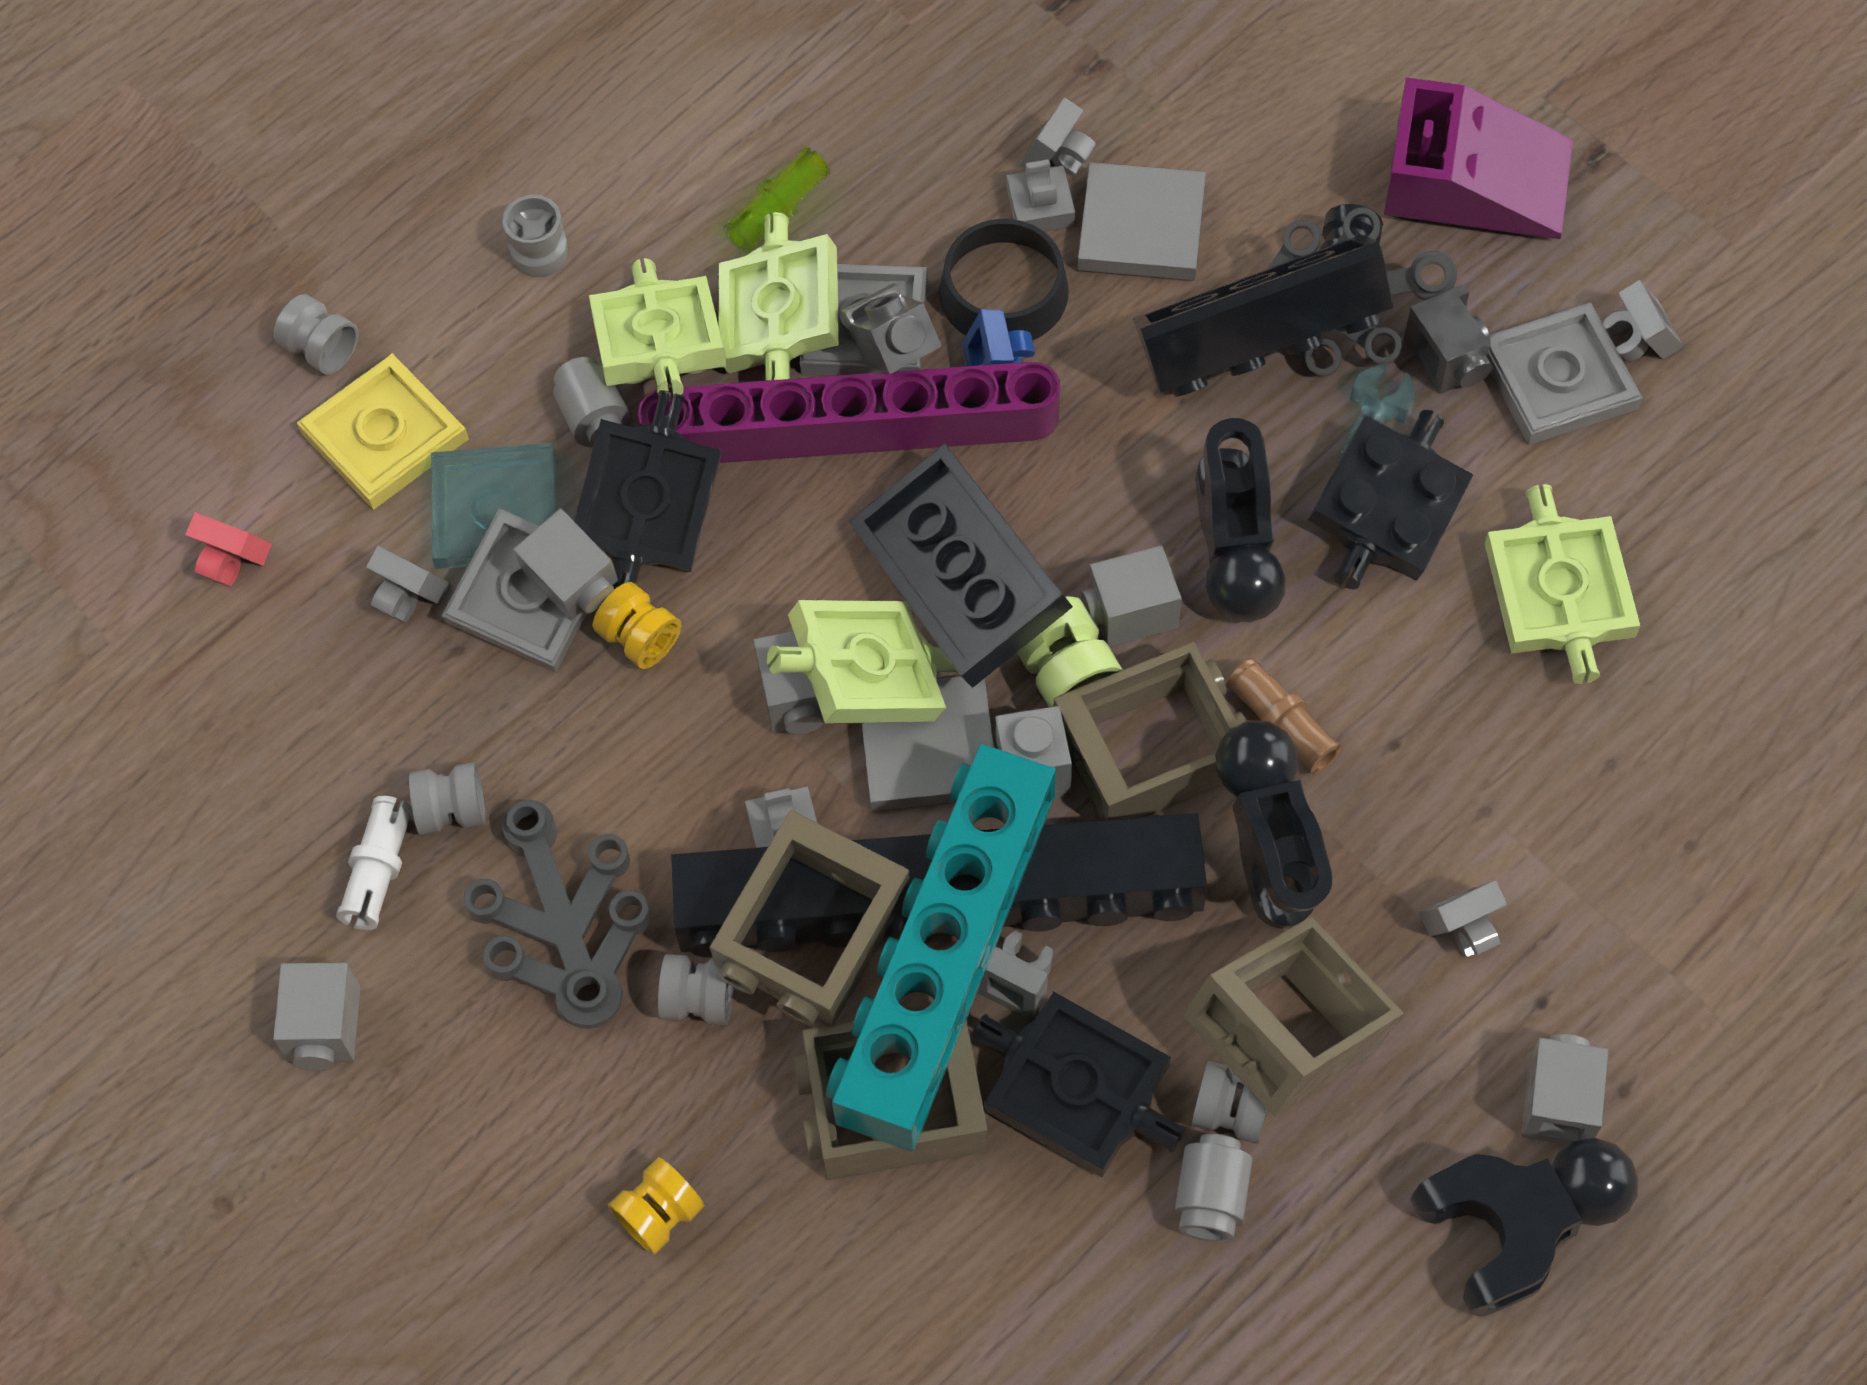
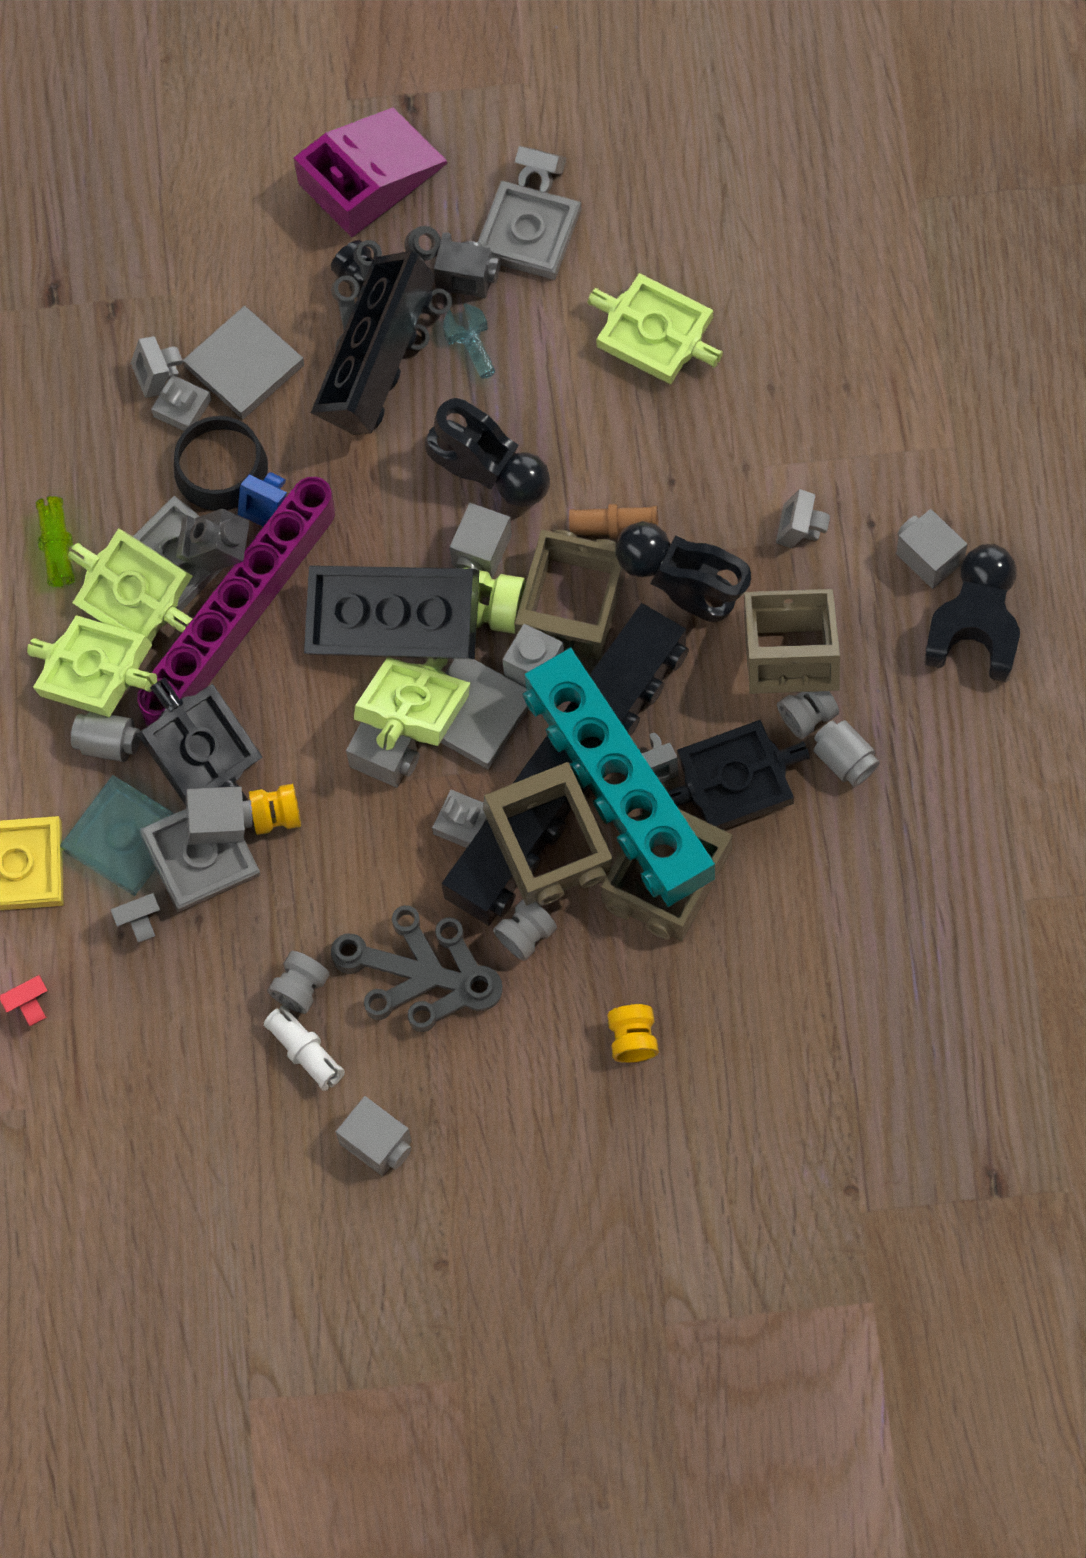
camera: 50 degrees left, 5 degrees up
(1390, 498) = (531, 370): black plate -> none

